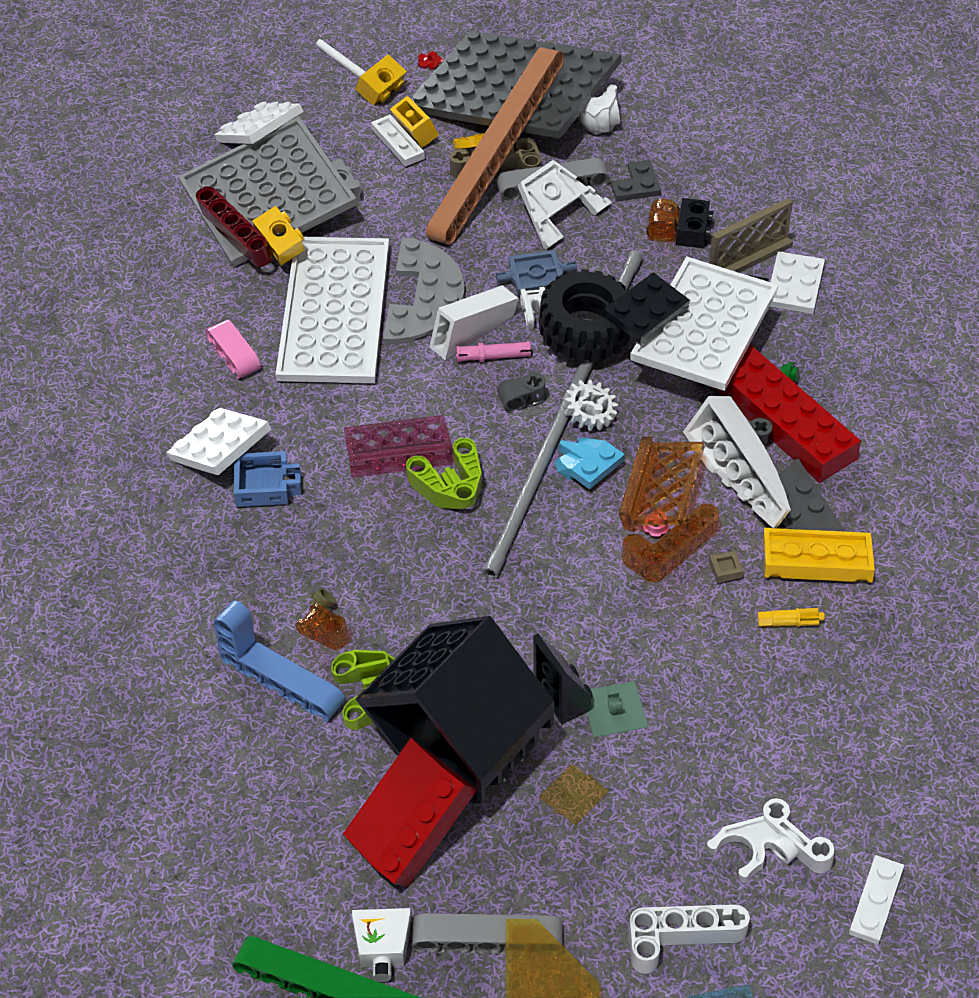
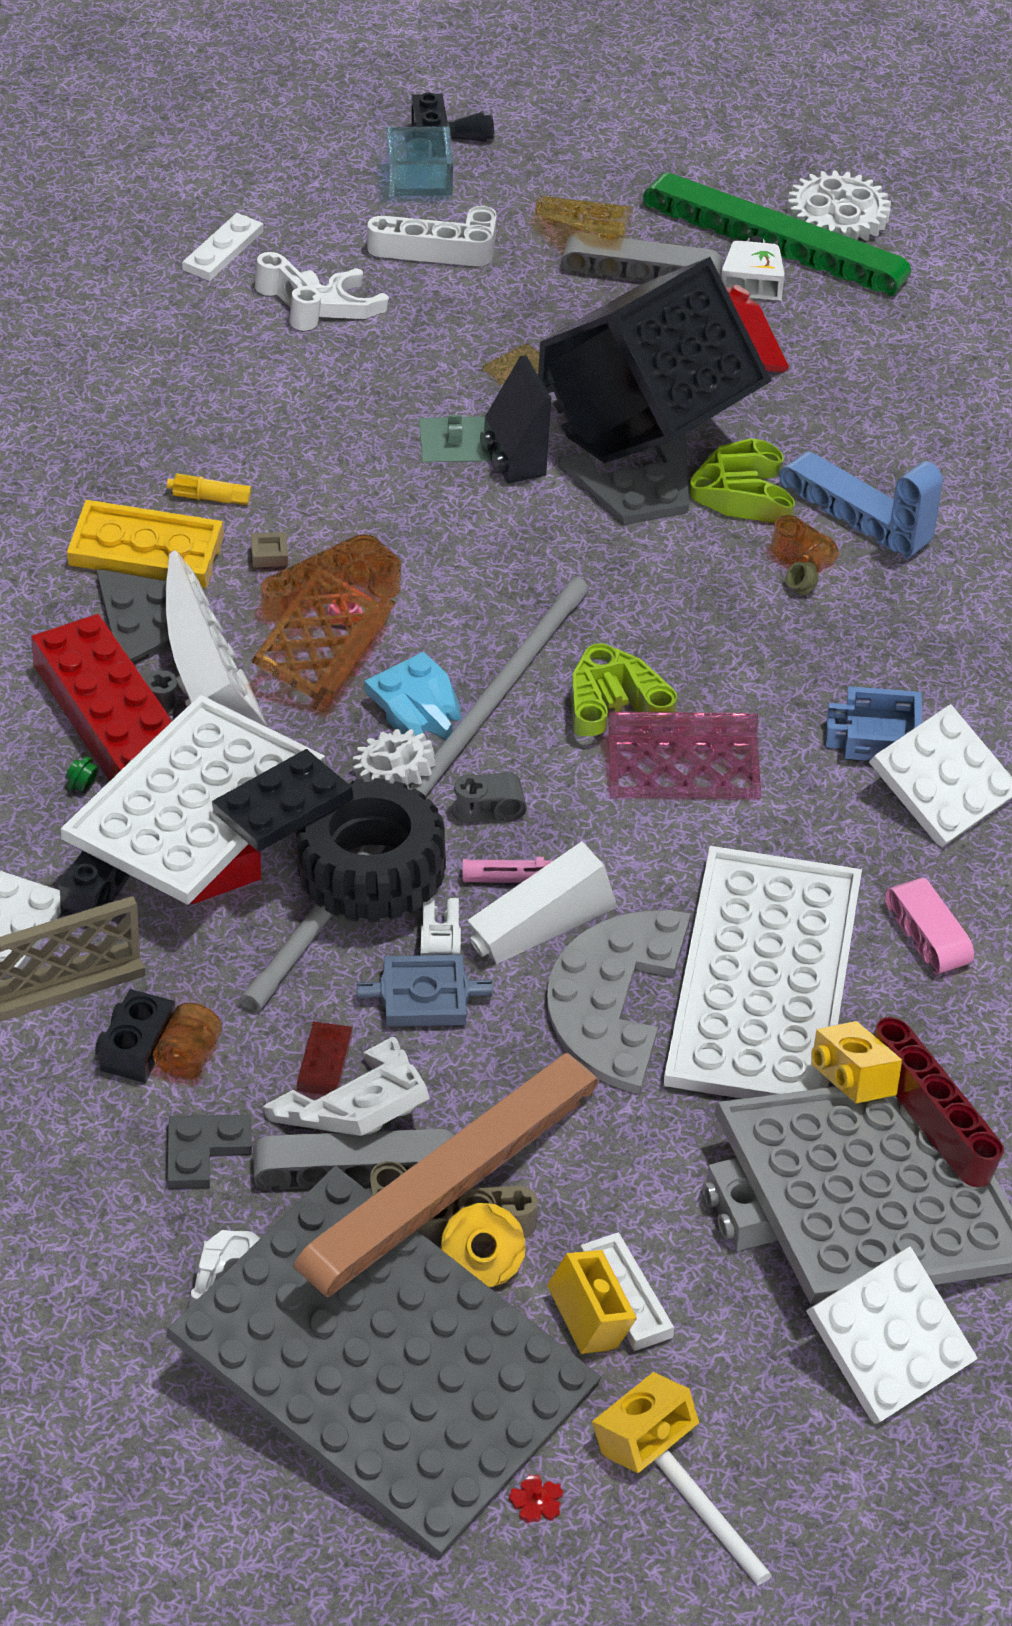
camera: 175 degrees left, 5 degrees down
(583, 229) = (324, 1058): none -> clear red plate

